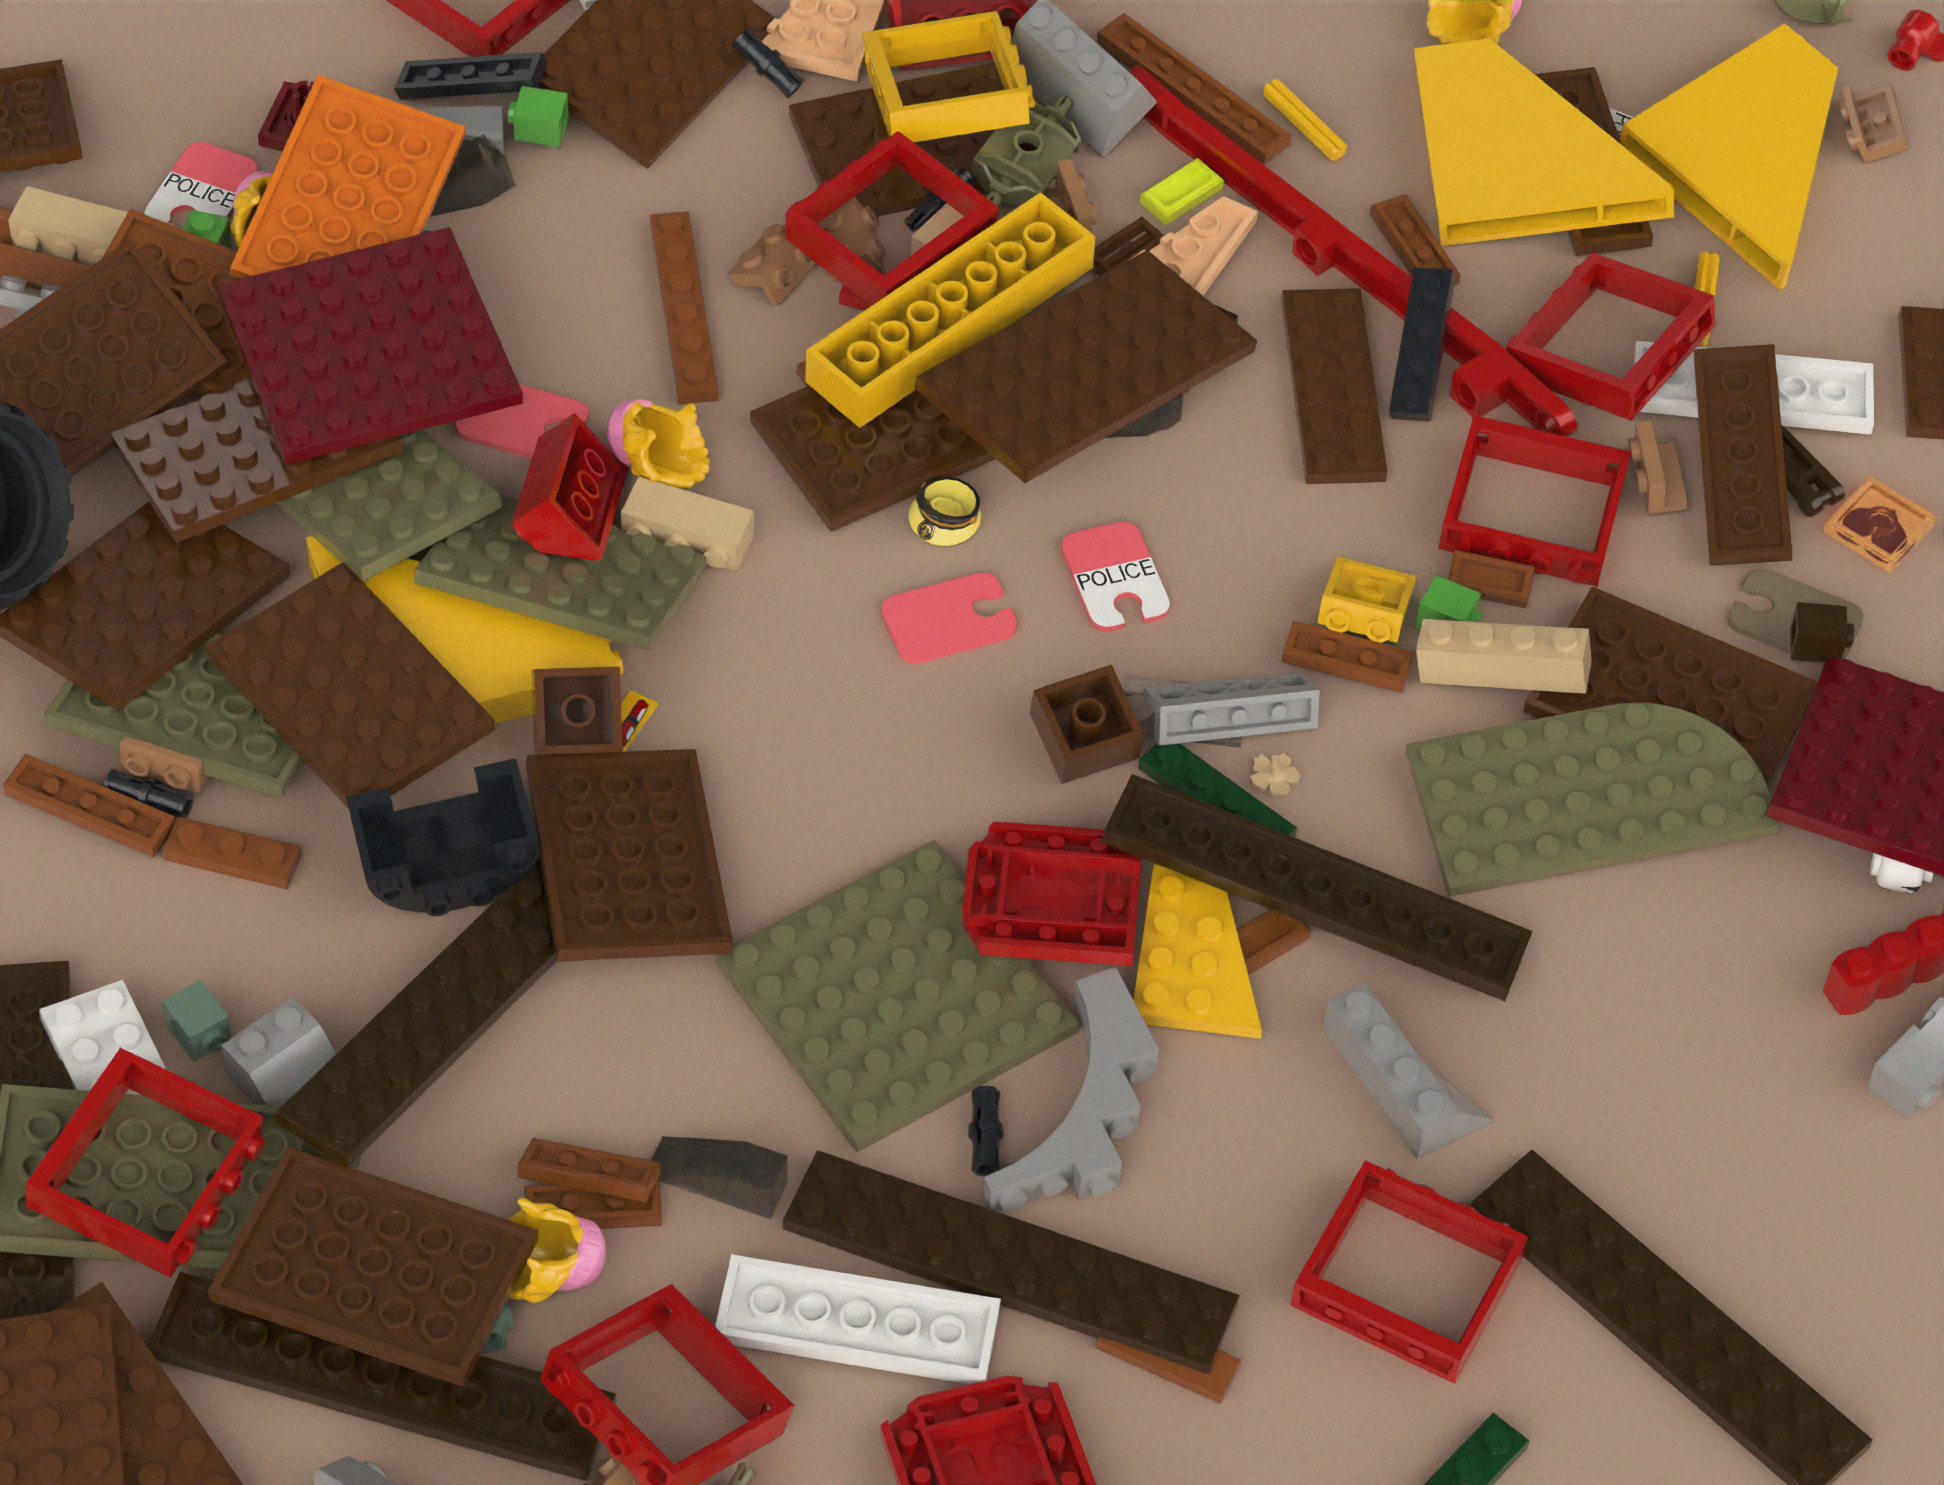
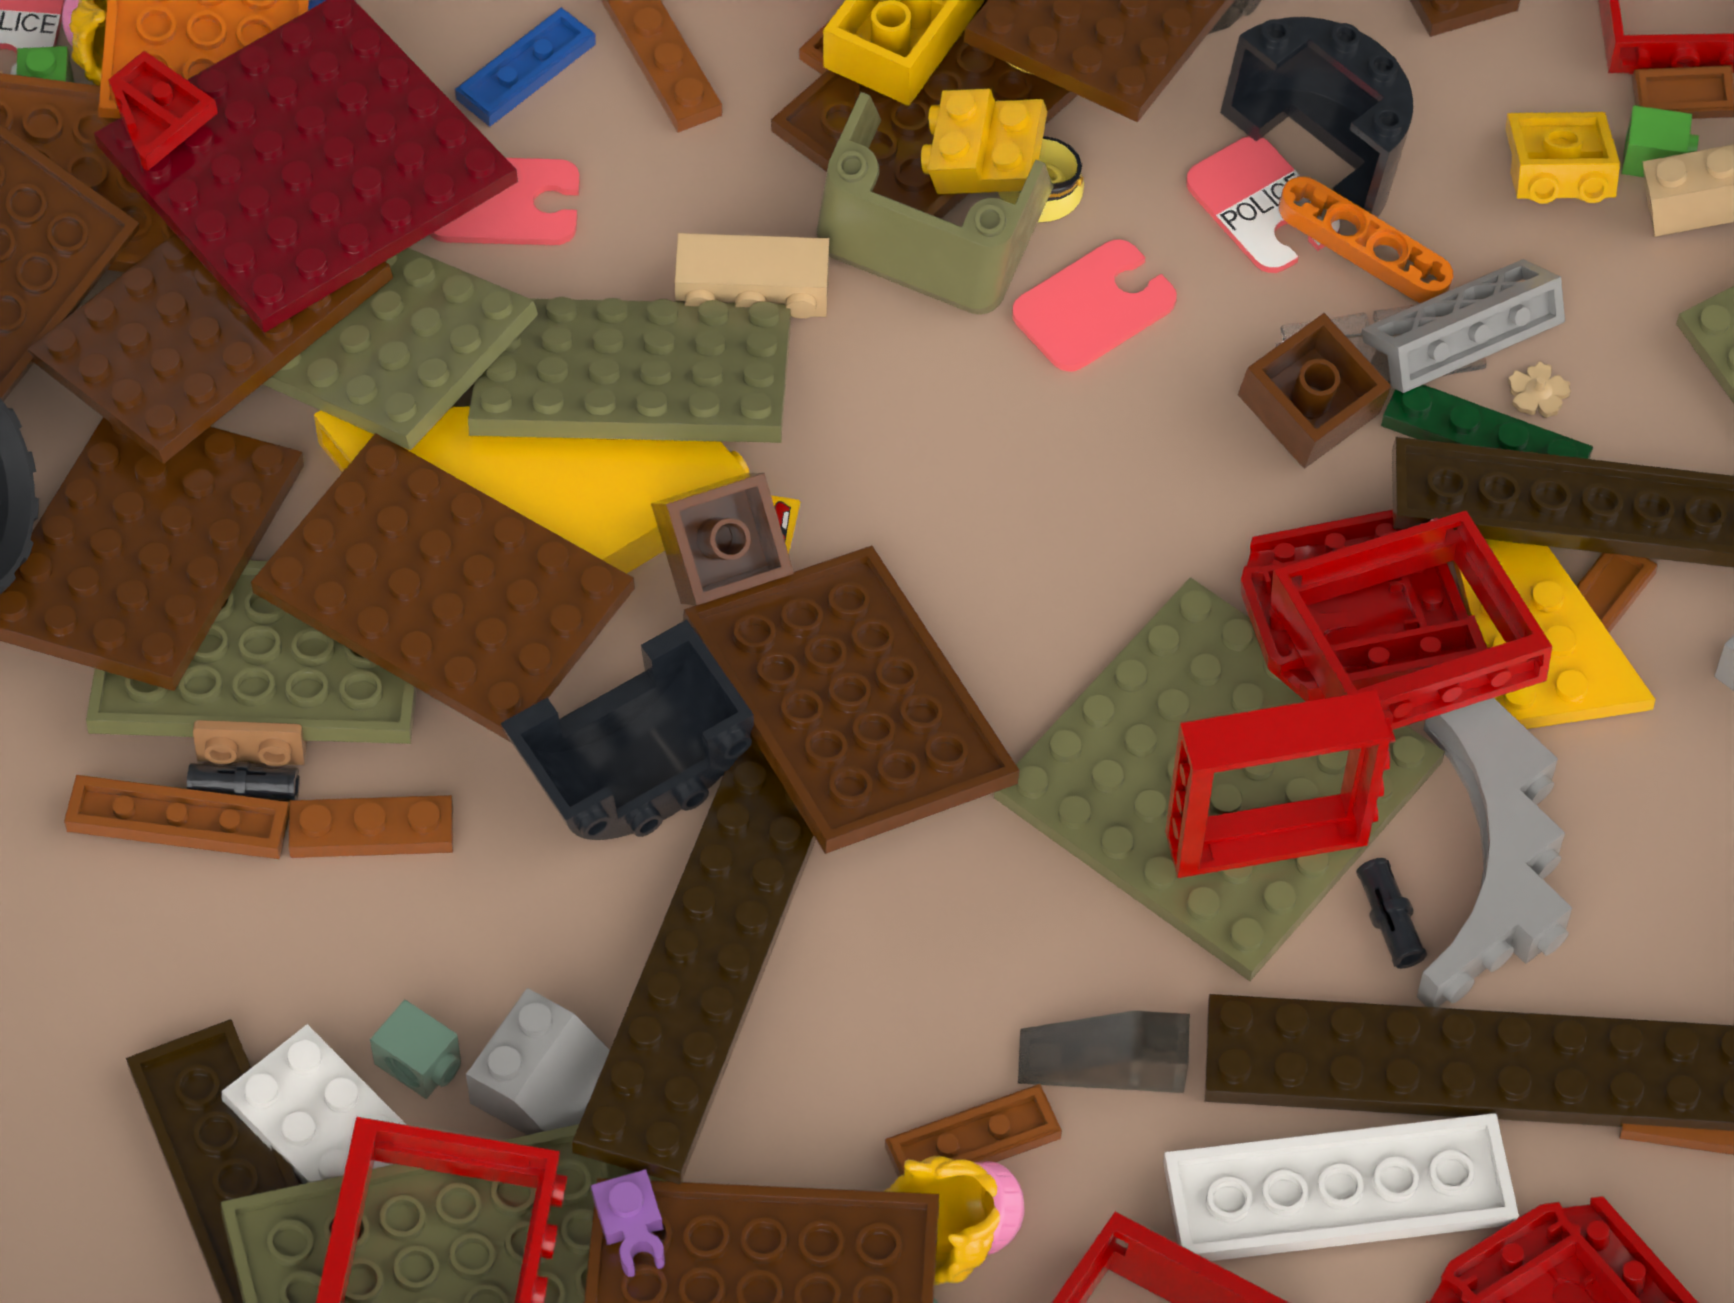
camera: 15 degrees left, 5 degrees up
(268, 276) = (158, 107): none -> red wing
(296, 1178) = (630, 1215): none -> medium lavender plate
(570, 493) = (606, 275): red slope -> none
(579, 324) = (525, 66): none -> blue tile
(589, 1169) = (955, 1097): dark orange tile -> none
(659, 442) = (683, 186): yellow hair -> none
(850, 557) = (915, 249): none -> olive windscreen
(903, 469) = (982, 142): none -> yellow plate
(904, 1041) = (1269, 736): none -> red window
(1077, 964) = (1441, 687): none -> red window
(1177, 626) = (1370, 234): none -> orange beam
(1196, 494) = (1331, 85): none -> black cylinder
(1347, 656) = (1566, 228): dark orange plate -> none

